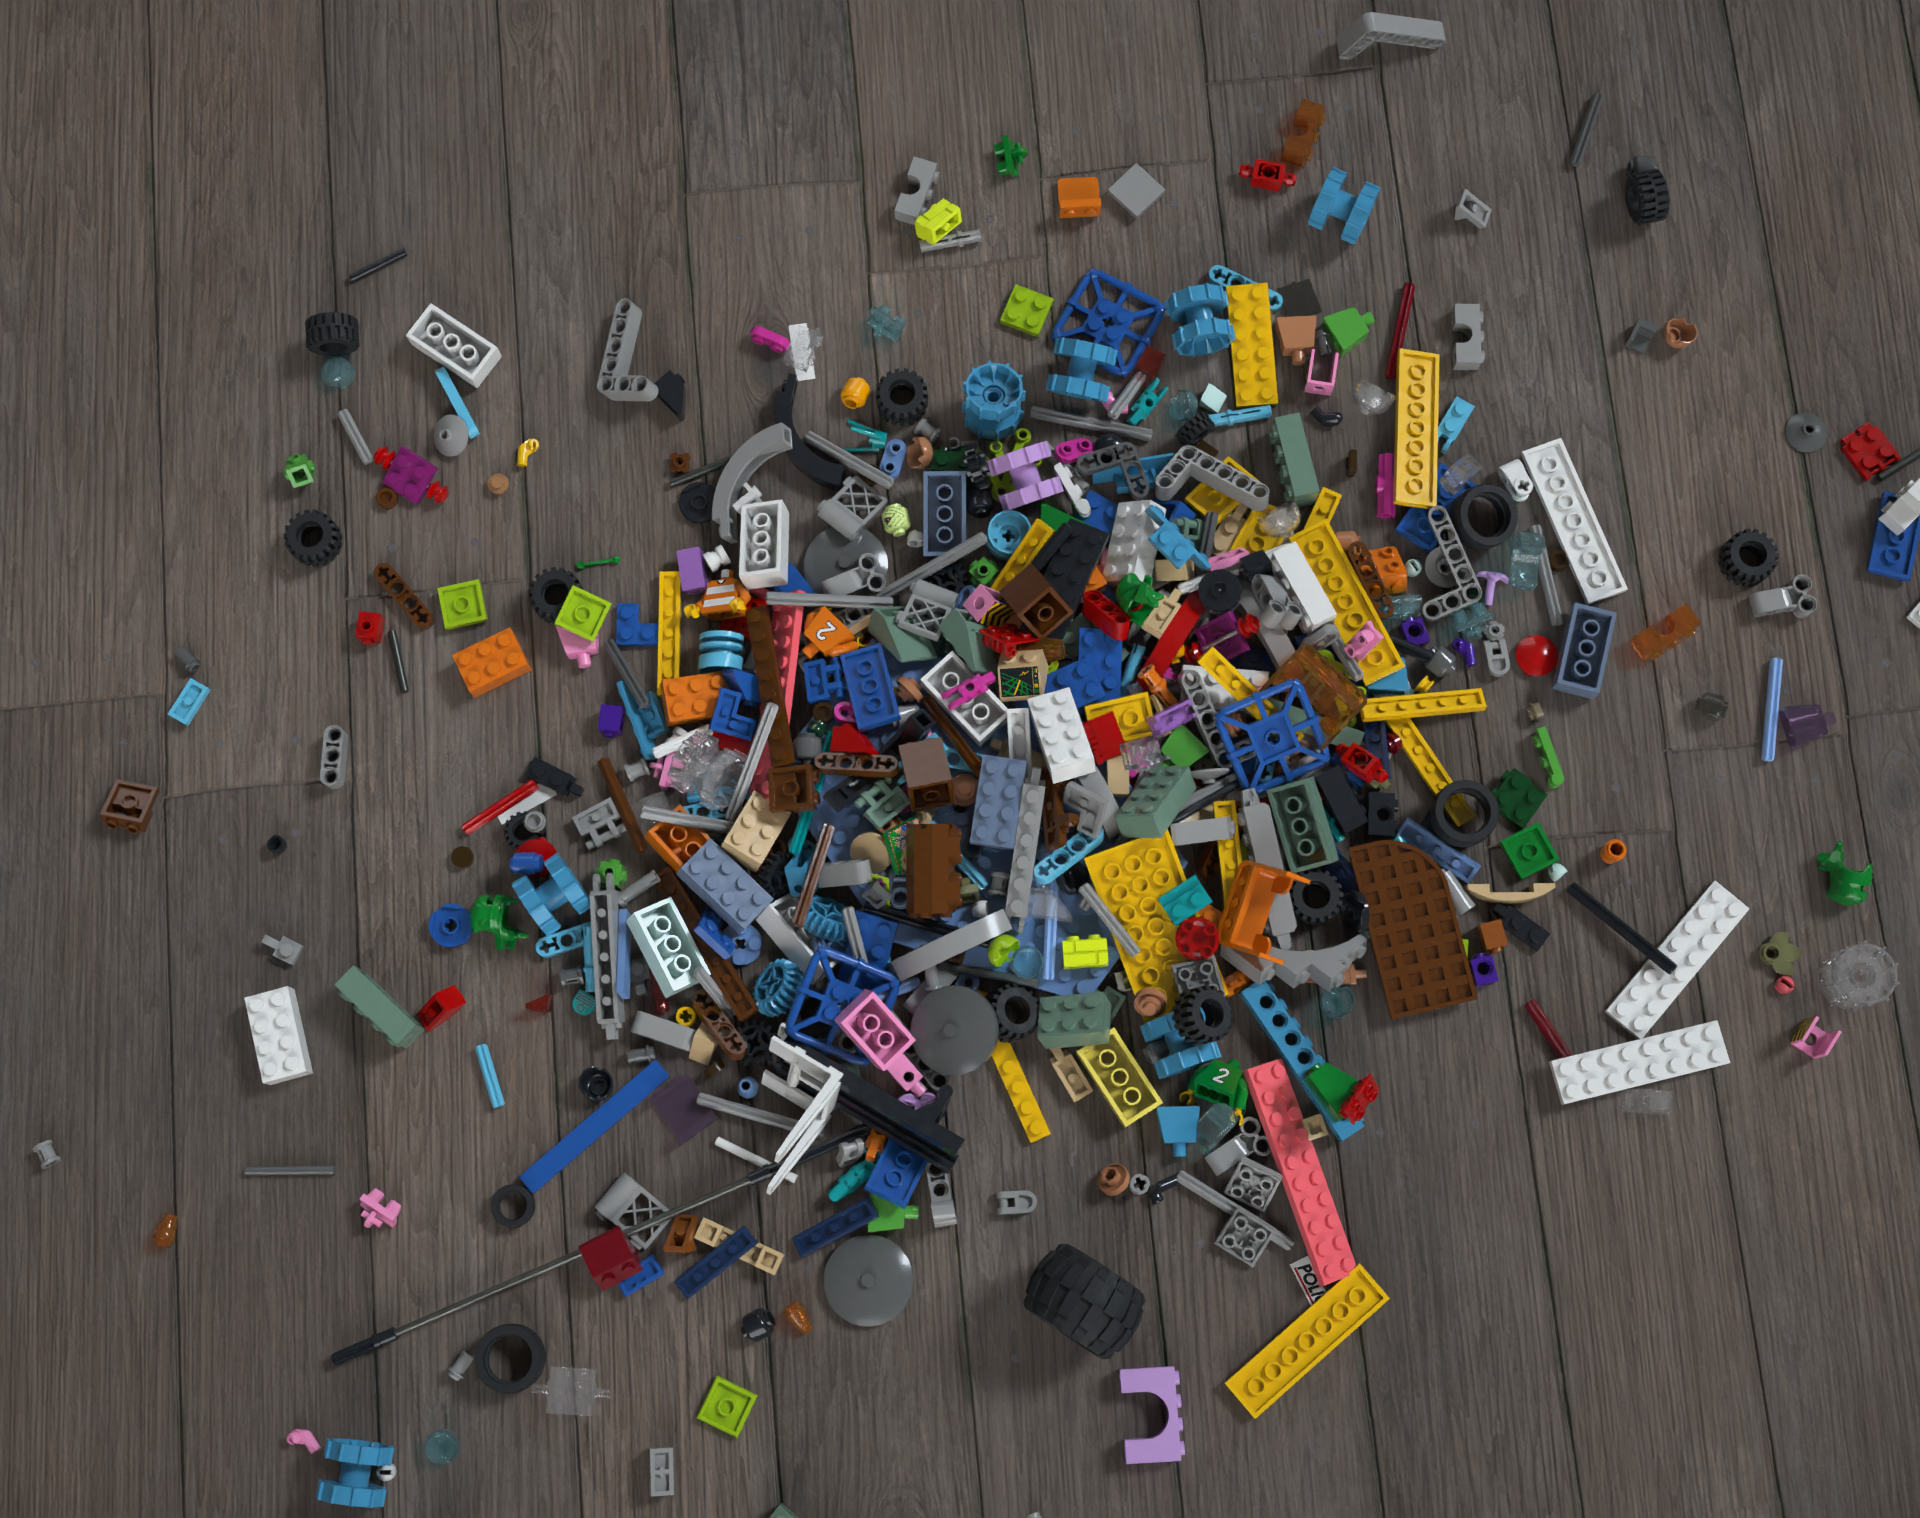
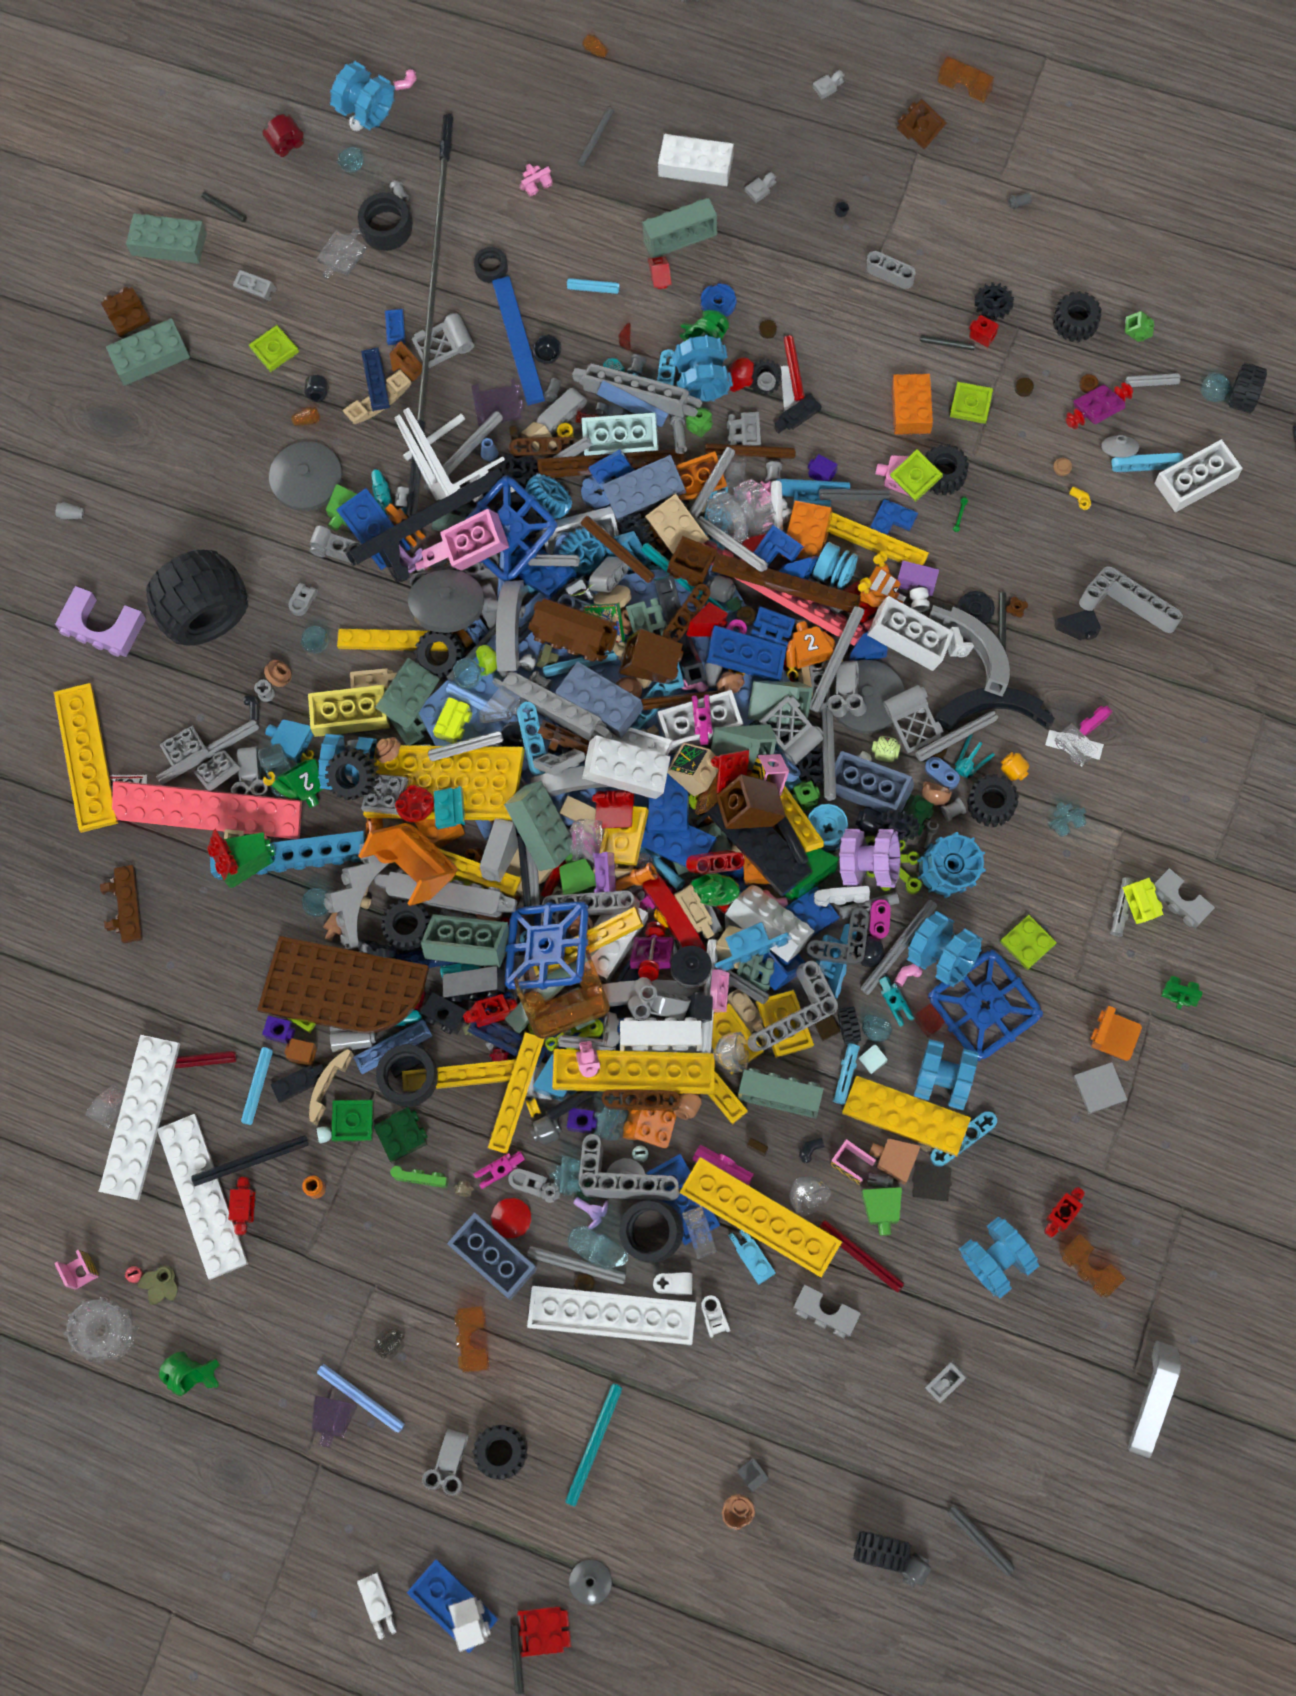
camera: 120 degrees right, 5 degrees down
(46, 795) = (977, 81): none -> clear orange arch
(115, 936) = (827, 85): none -> light grey plate
(189, 702) = (984, 190): medium azure plate -> none
(336, 628) = (992, 299): none -> black gear
(403, 596) = (1000, 367): reddish brown beam -> none
(419, 560) = (1024, 387): none -> dark brown tile
(526, 863) = (735, 360): blue brick -> none
(611, 1258) = (414, 308): dark red slope -> none
(835, 1227) = (353, 465): dark blue tile -> none
(1057, 1160) = (315, 639): none -> clear light blue hair
(1126, 395) = (908, 984): light grey axle -> none
(1208, 775) = (547, 885): light grey dish -> none
(1422, 1215) = (125, 888): none -> reddish brown hinge
(1466, 650) = (547, 1160): dark purple arm -> none
(1498, 688) = (507, 1161): none -> dark pink hinge
(1526, 430) = (714, 1317): none -> white piece
(1545, 964) = (256, 1086): none -> medium azure axle
(1667, 912) = (241, 1206): none -> red piece
(1692, 483) = (593, 1445): none -> teal axle

